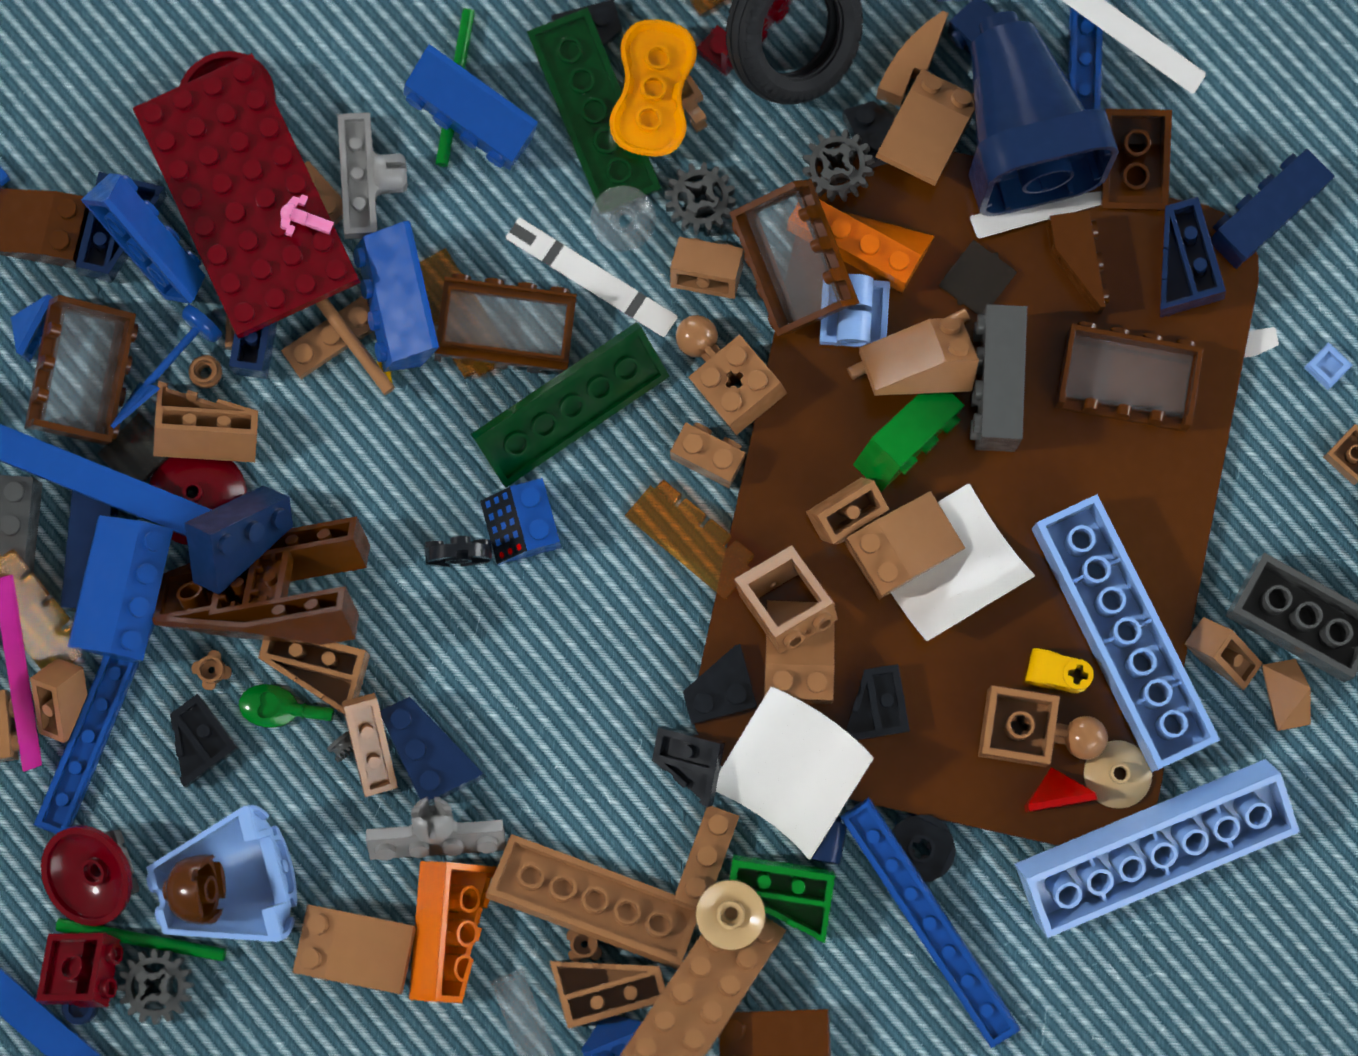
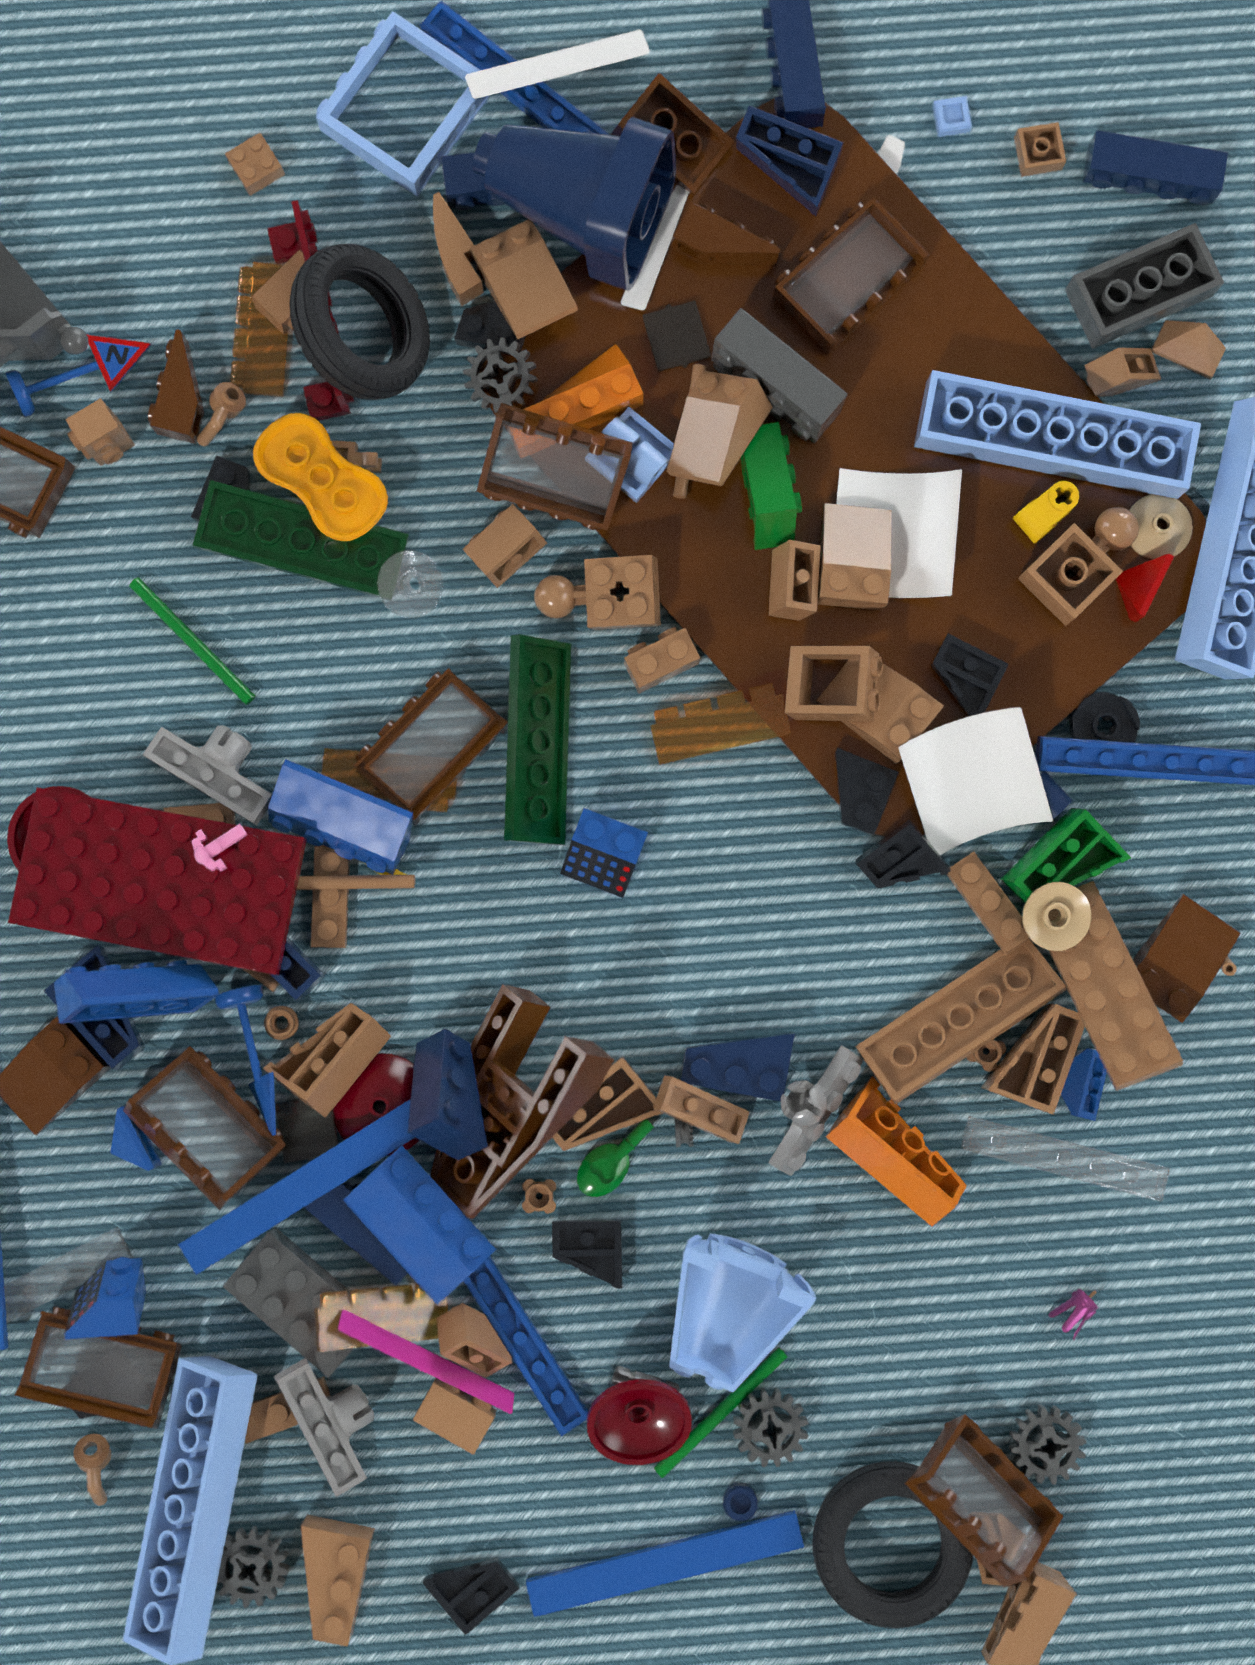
camera: 60 degrees left, 5 degrees up
(79, 969) = (712, 1482): dark red plate -> none
(195, 889) = (718, 1341): reddish brown cylinder -> none
(354, 949) = (859, 1242): medium nougat slope -> none
(460, 551) = (593, 921): black plate -> none
(469, 108) = (223, 640): blue slope -> none
(591, 277) = (438, 647): white sticker -> none
(689, 191) = (452, 503): dark grey gear -> none

